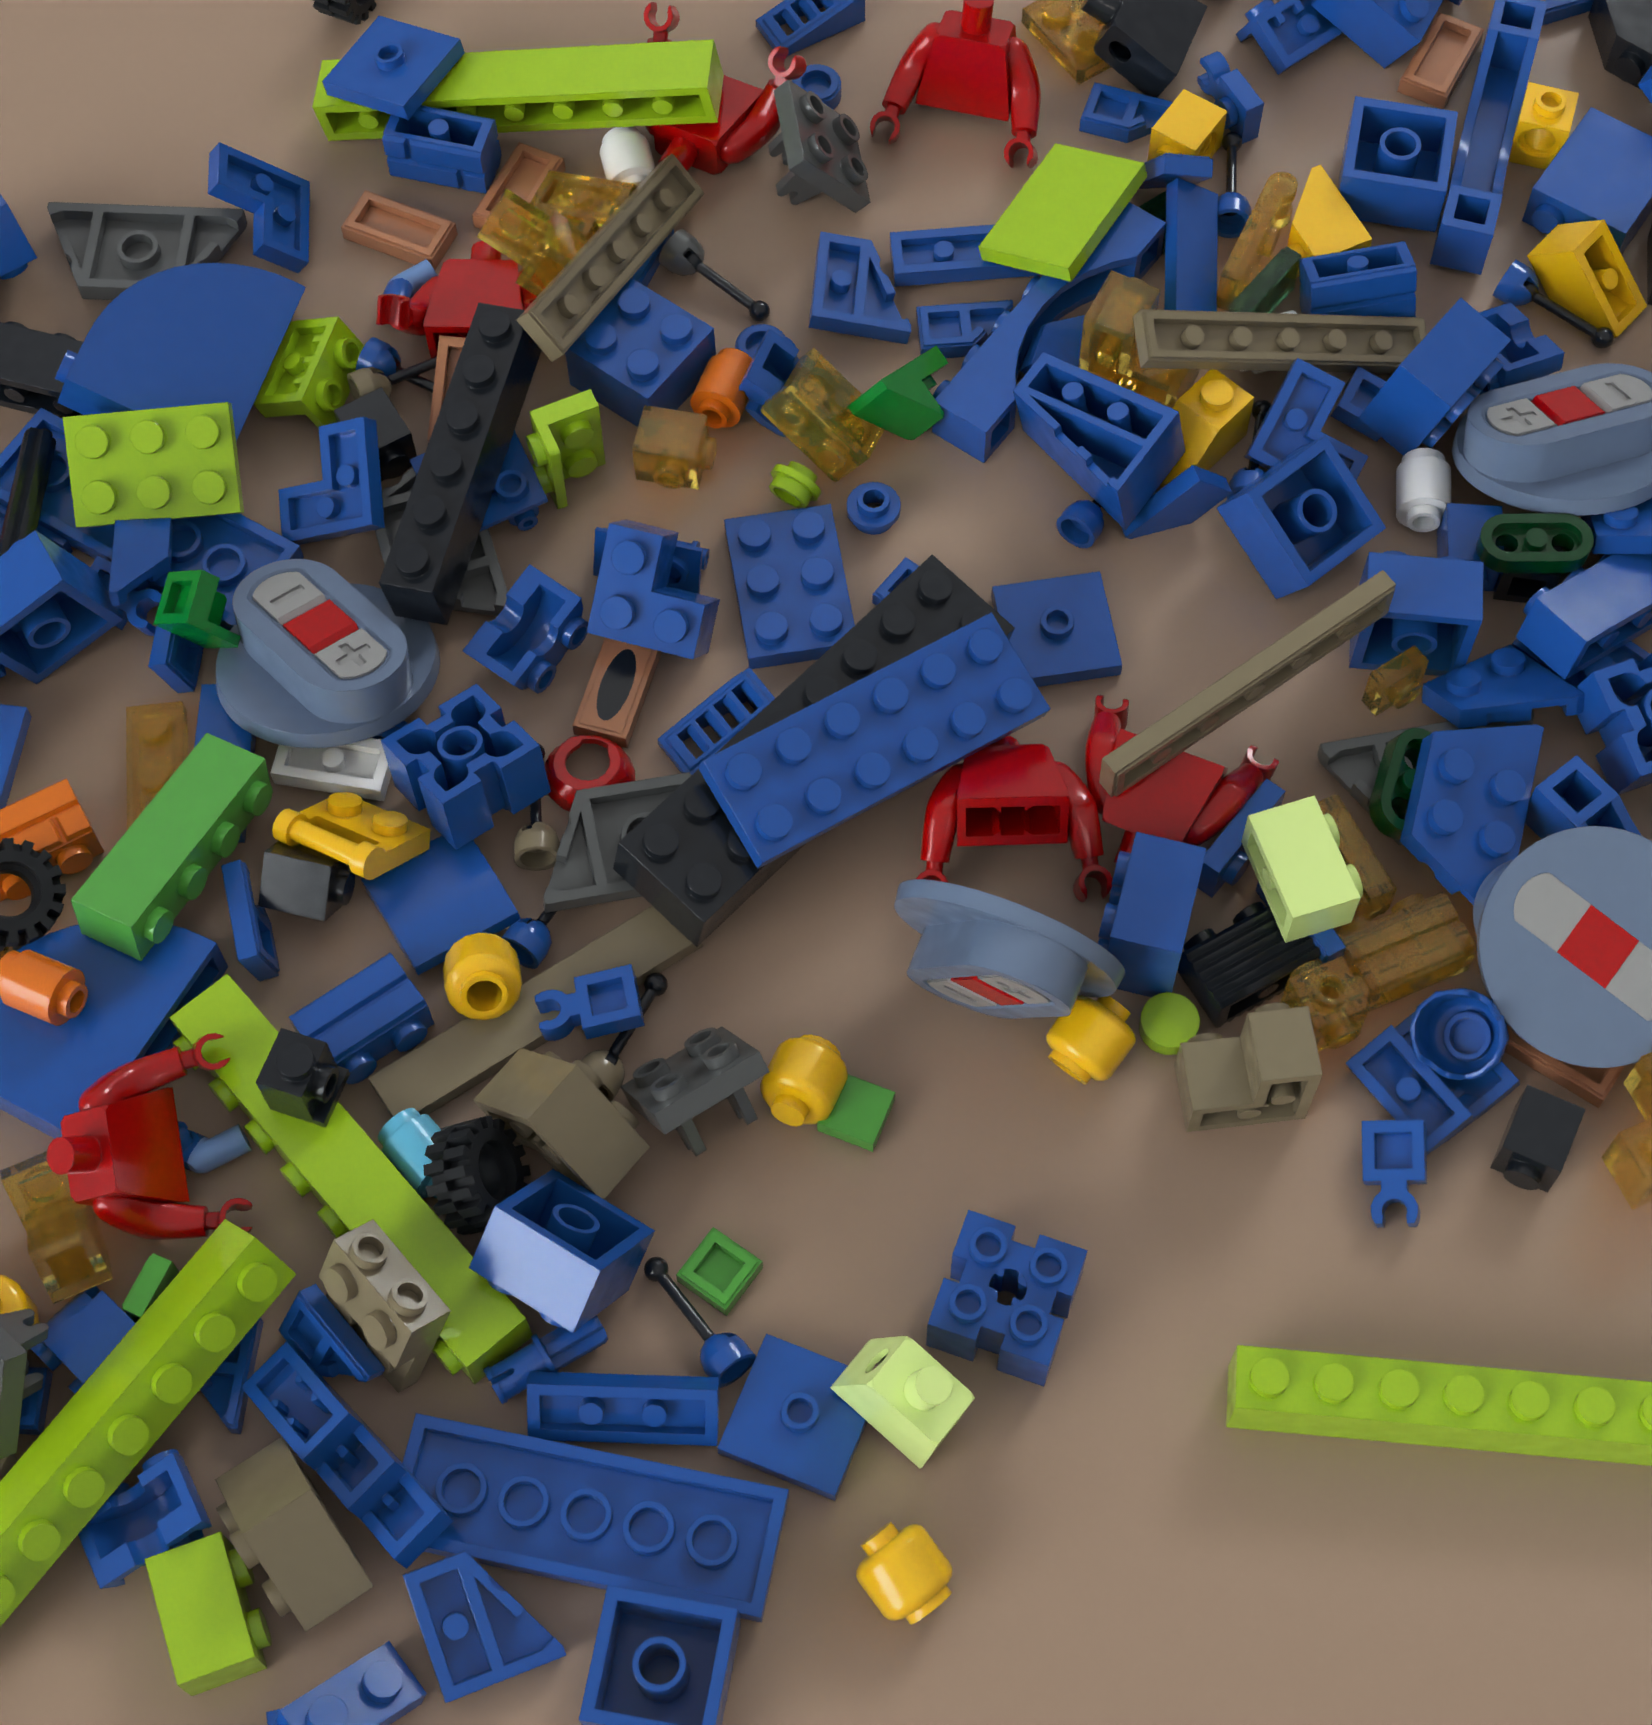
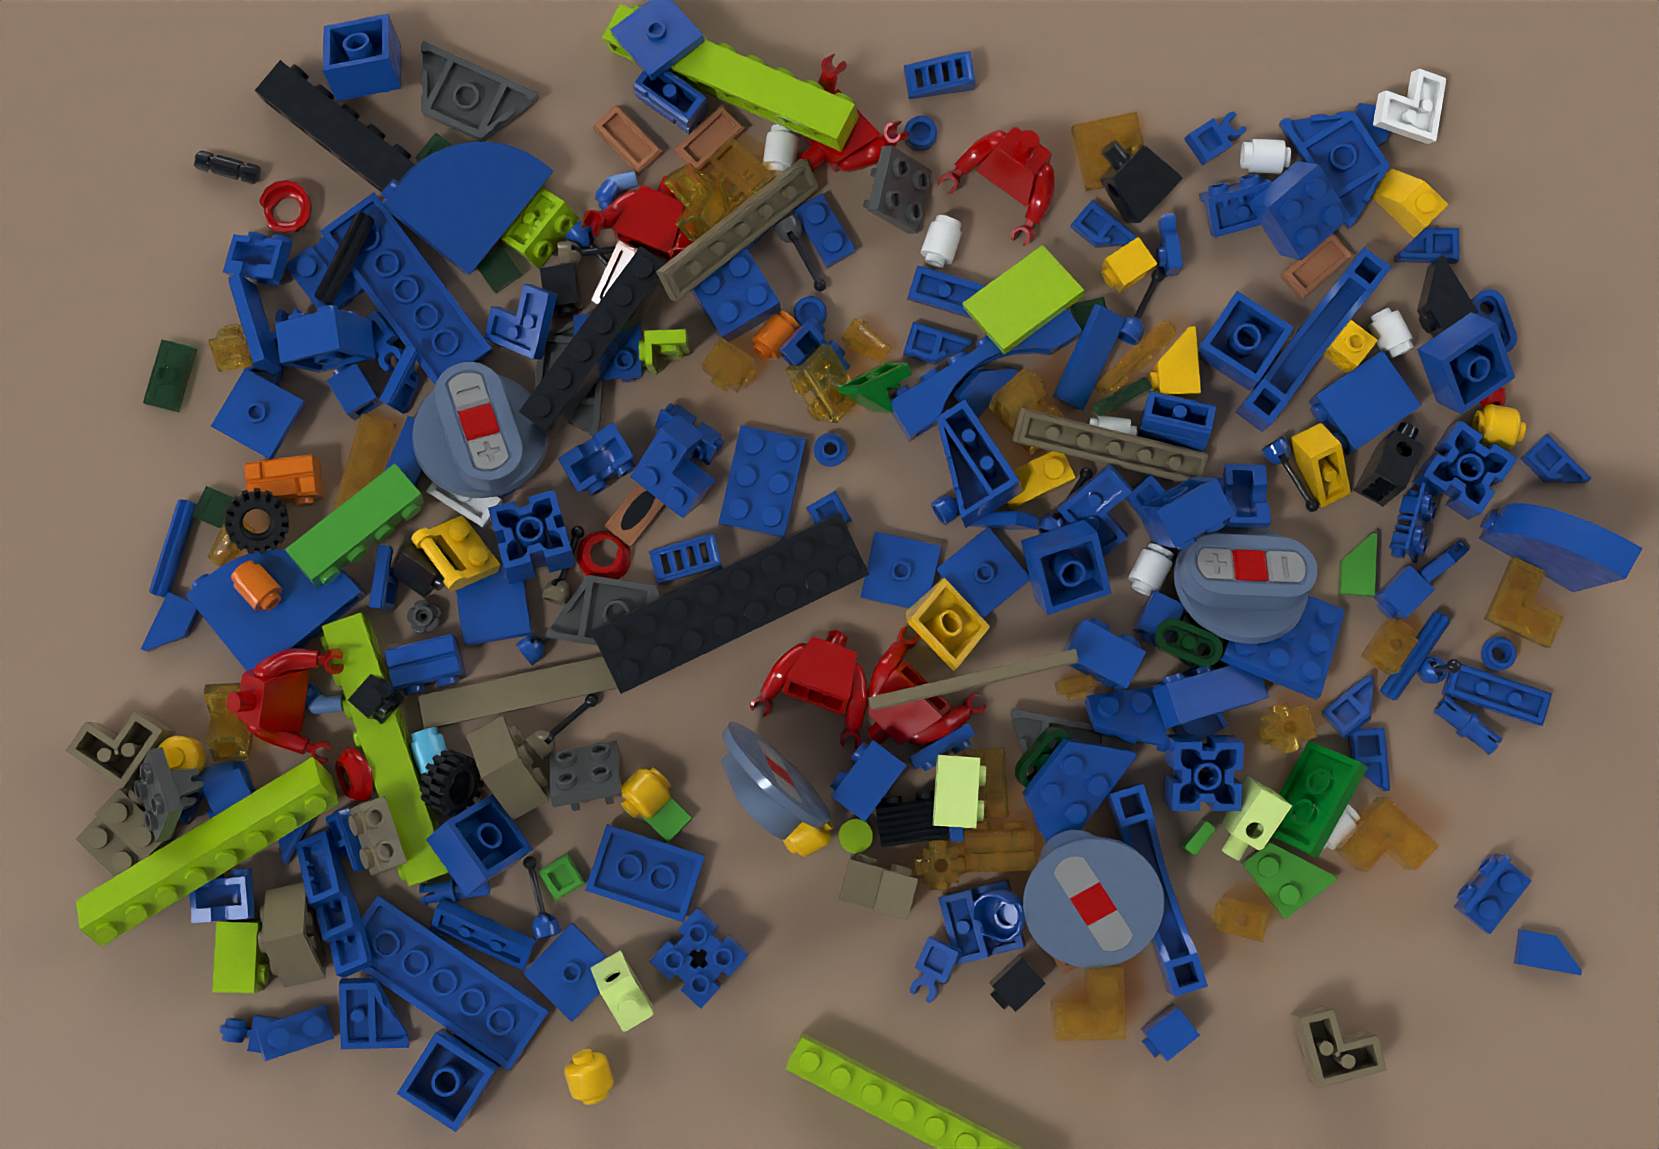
camera: 20 degrees right, 20 degrees up
(104, 677) = (354, 390): none -> blue brick
(139, 554) = (396, 324): blue tile -> none
(150, 1283) = (266, 773): bright green tile -> none
(153, 464) = (421, 270): lime plate -> none
(195, 609) = (412, 378): green panel -> none
(271, 450) = (498, 270): none -> clear green tile
(273, 196) = (558, 93): blue plate -> none
(315, 1218) = (358, 772): none -> red piece
(334, 972) = (432, 620): none -> dark grey plate
(482, 976) = (497, 665): yellow head -> none
(602, 1004) = (554, 707): blue plate -> none
(738, 245) = (824, 231): none -> blue plate
(794, 484) = (790, 418): lime plate -> none
(853, 292) = (880, 295): blue wing -> none
(856, 1206) = (645, 873): none -> blue plate
(860, 351) = (865, 340): none -> clear yellow cone
(873, 739) = (757, 622): blue plate -> none
(910, 194) = (941, 241): none -> white brick
(1157, 660) = (947, 623): none -> yellow slope
(1171, 166) = (1103, 295): blue tile -> none
(1181, 590) = (984, 572): none -> blue plate
(1594, 89) = (1391, 333): none -> white brick

